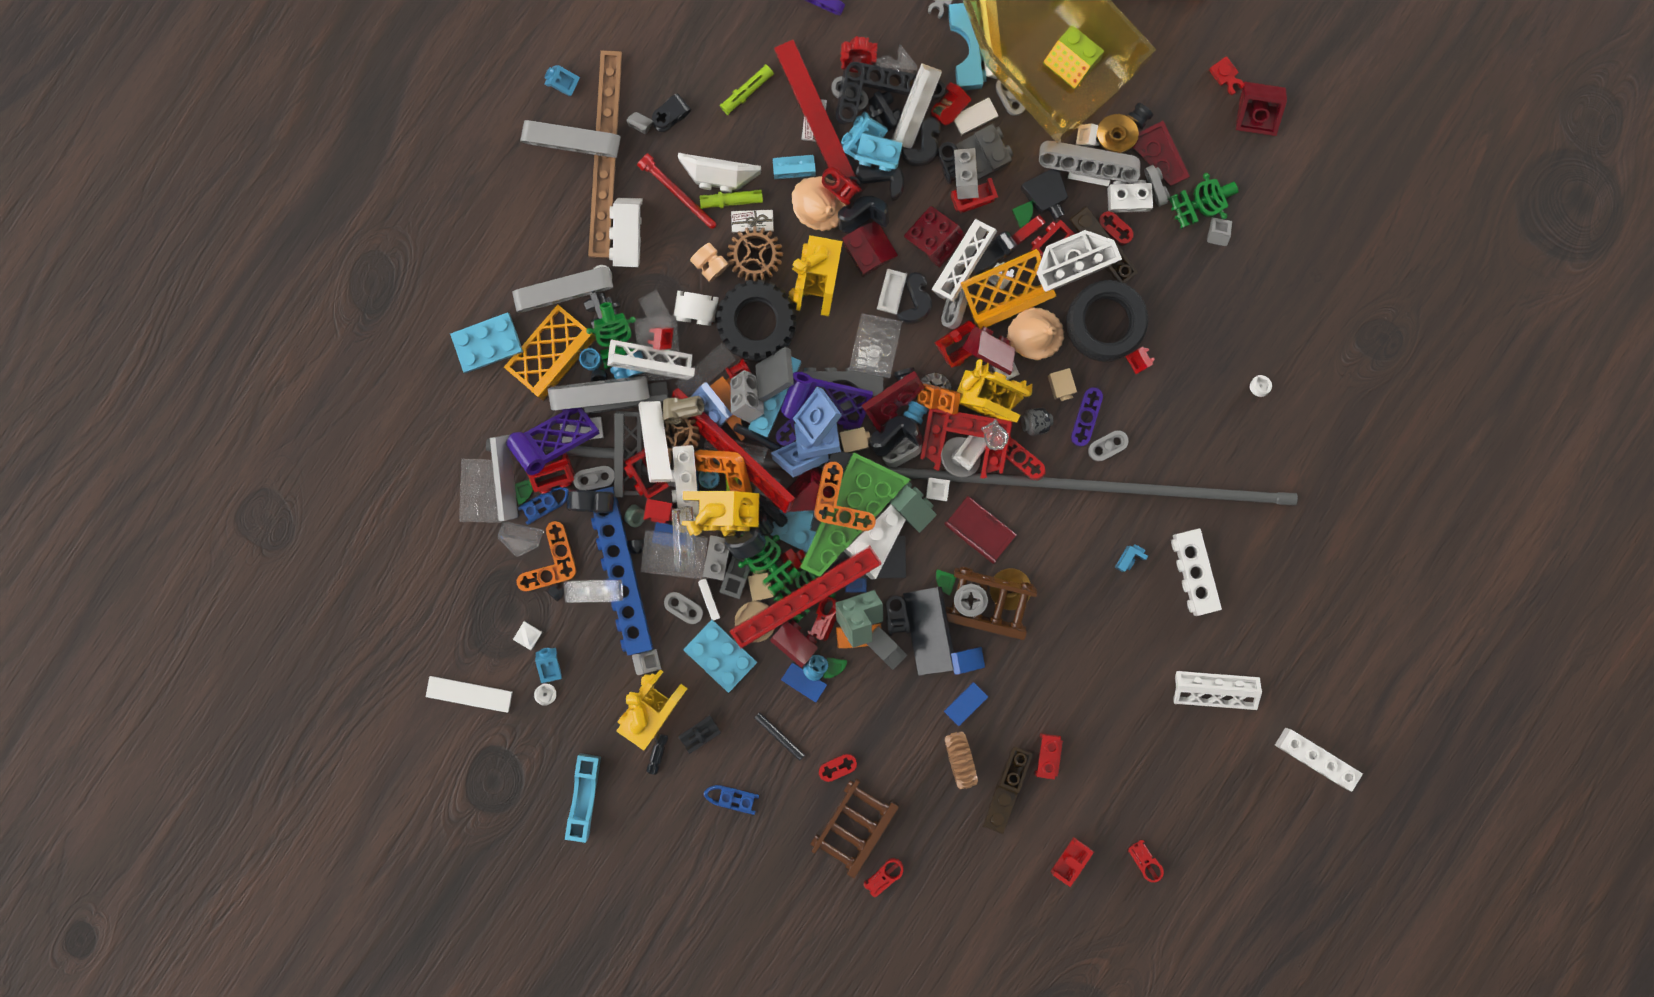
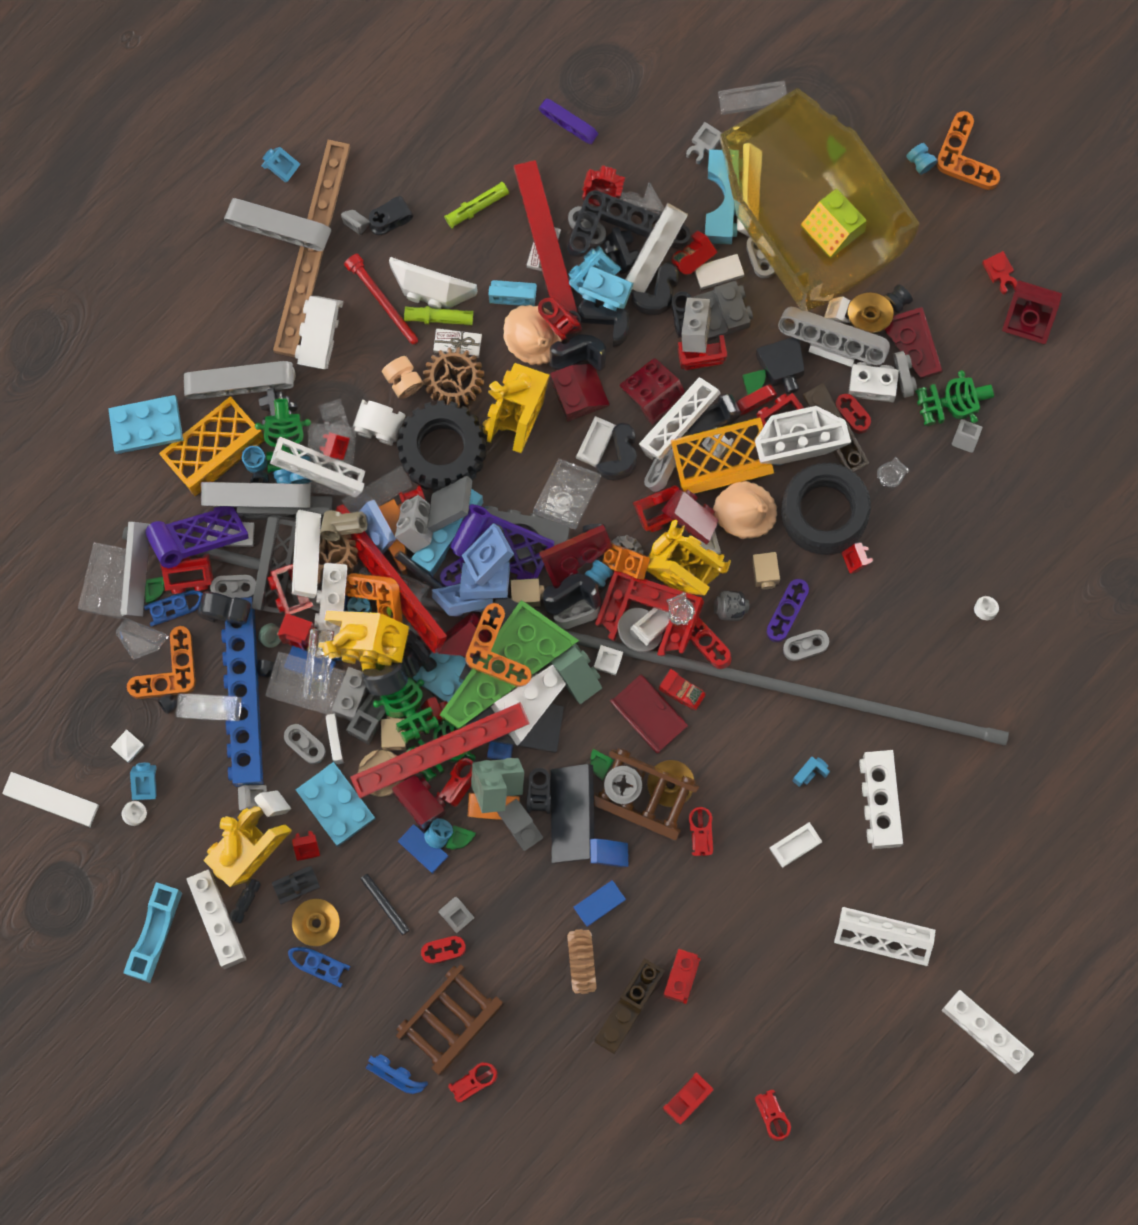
camera: 20 degrees right, 10 degrees down
(635, 776) = (216, 919): none -> white brick
(665, 667) = (272, 803): none -> white tile
(702, 698) = (306, 846): none -> red tile
(717, 773) = (310, 911): none -> pearl gold dish
(820, 884) = (400, 1076): none -> blue piece
(842, 734) = (456, 914): none -> light grey slope
(1006, 504) = (681, 690): none -> red leg
(1044, 630) = (702, 837): none -> red piece
(1127, 623) = (795, 845): none -> white tile
(1159, 277) = (892, 473): none -> clear animal

